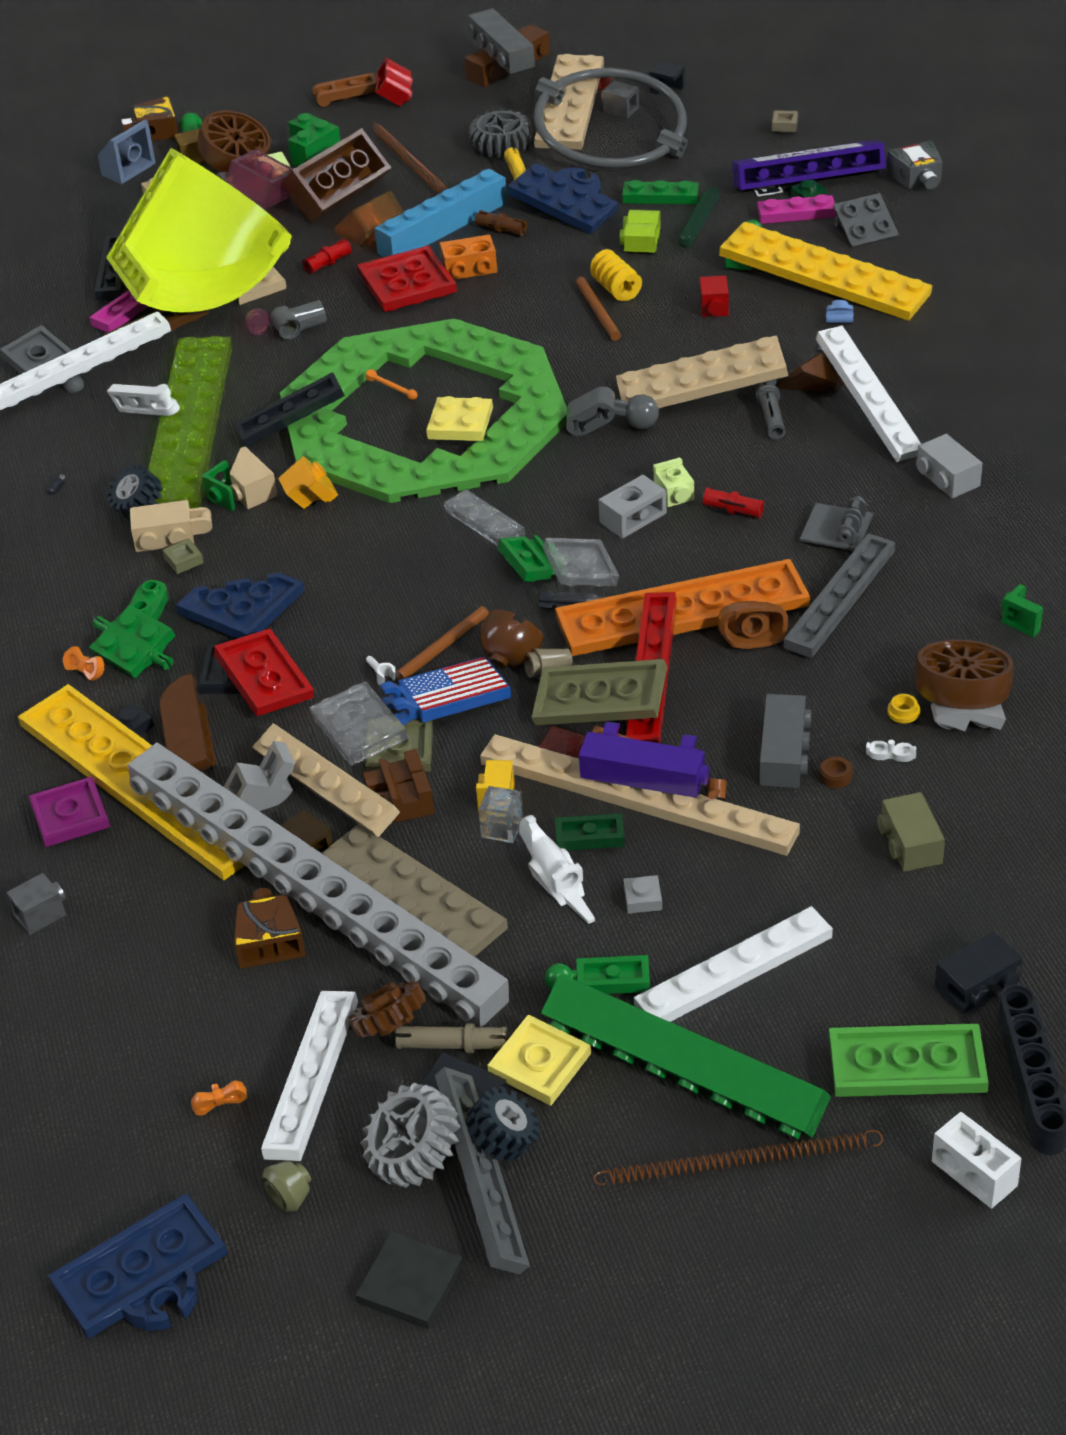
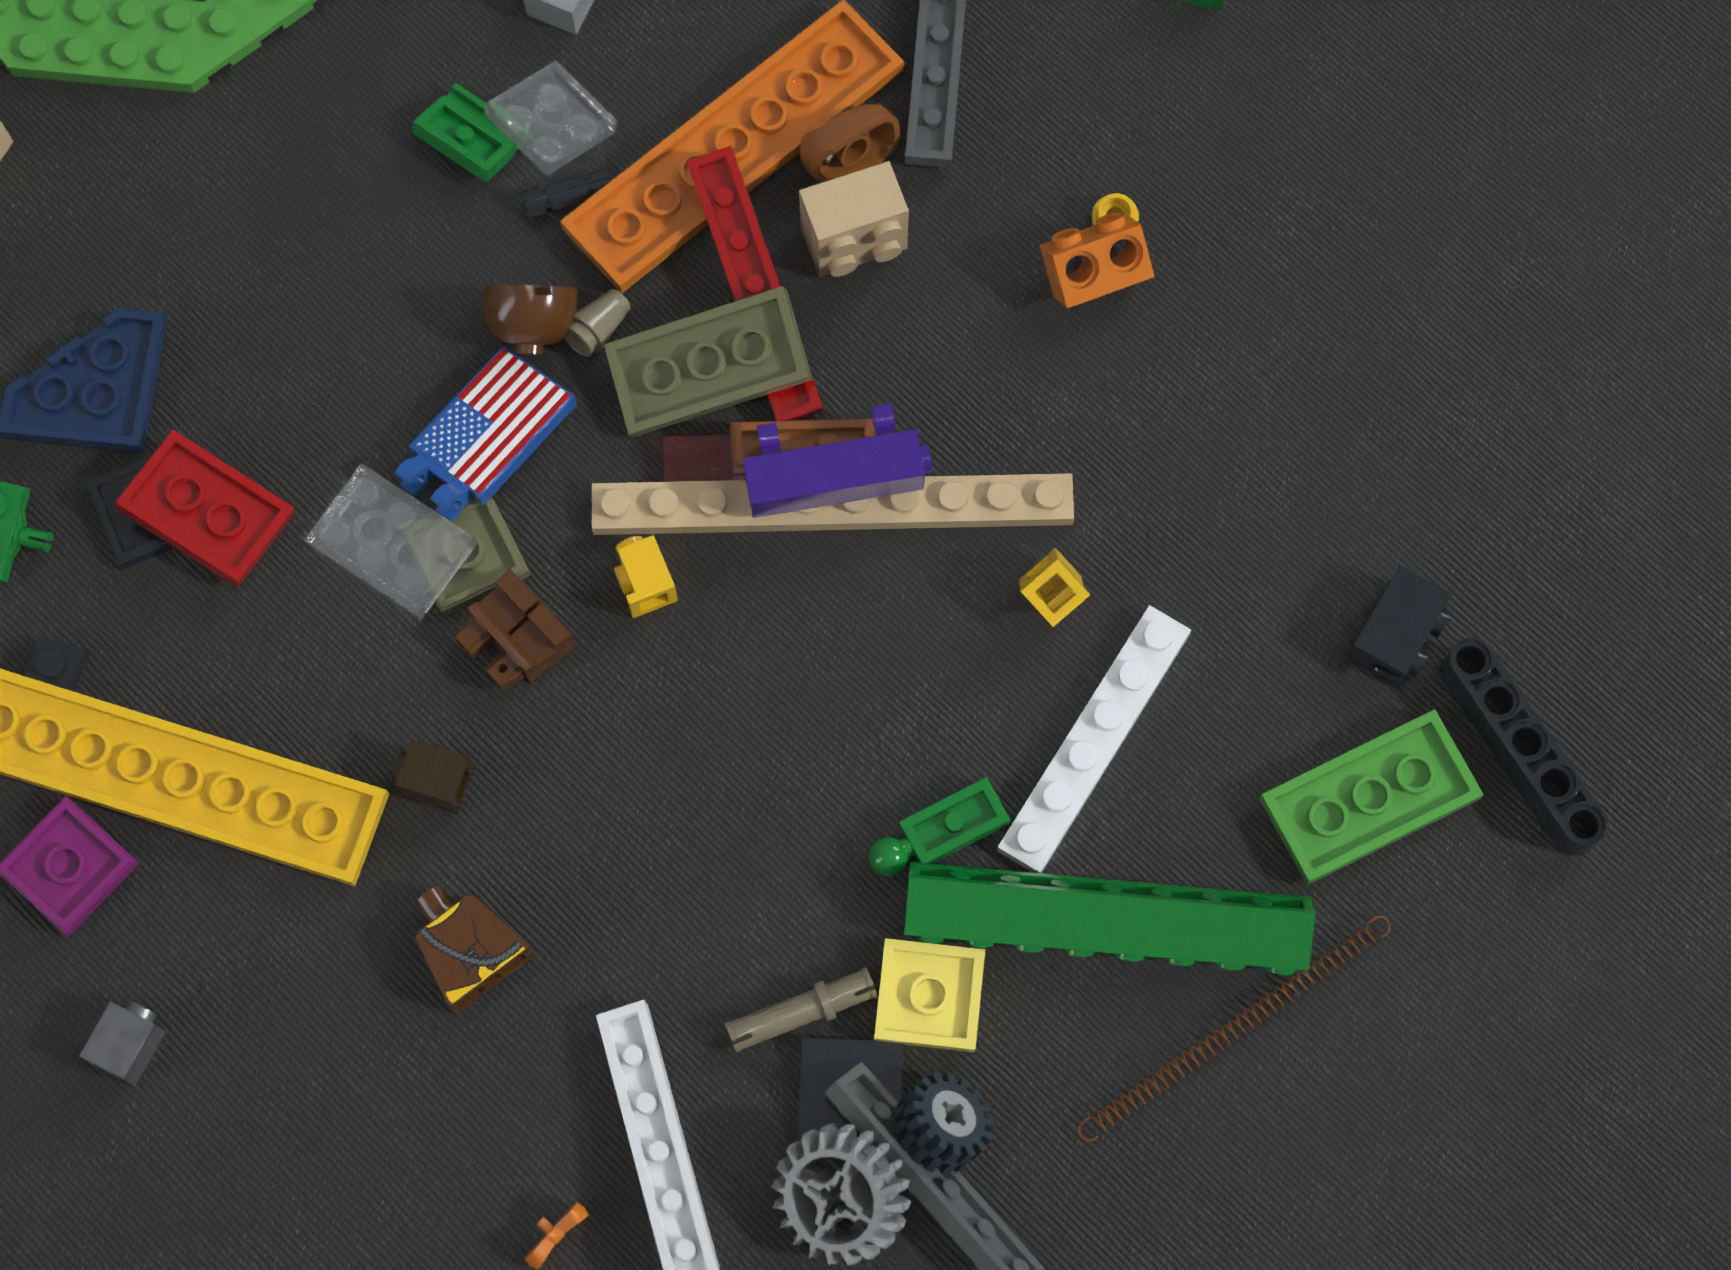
camera: 30 degrees left, 30 degrees up
(187, 724) = (150, 651): reddish brown brick -> none
(263, 784) = (319, 709): light grey brick -> none
(307, 483) = (59, 115): light orange brick -> none
(321, 886) = (174, 759): light grey brick -> none
(332, 783) = (405, 667): tan plate -> none
(382, 669) = (363, 426): white hand -> none
(387, 1009) = (705, 1014): reddish brown gear -> none
(417, 889) = (617, 802): dark tan plate -> none
(442, 643) = (425, 342): dark orange bar -> none
(483, 517) = (358, 76): clear plate -> none
(500, 814) = (678, 625): clear brick -> none
(554, 868) = (795, 685): white animal -> none
(590, 831) = (807, 601): dark green plate -> none
(642, 894) = (923, 671): light grey plate -> none
(716, 788) = (940, 463): dark orange hand -> none
(730, 652) = (854, 220): none -> tan brick
(752, 872) = (1053, 587): none -> yellow brick
(784, 740) = (988, 339): dark grey brick -> none
(836, 772) = (1074, 360): reddish brown tile -> none
(876, 728) = (1097, 272): none -> orange brick
(881, 751) = (1139, 293): white piece -> none
(911, 832) = (1221, 430): olive brick -> none
(959, 718) = (1197, 193): light grey slope -> none
(963, 674) = (1168, 122): reddish brown piece -> none
(976, 1159) = (1521, 919): white brick -> none

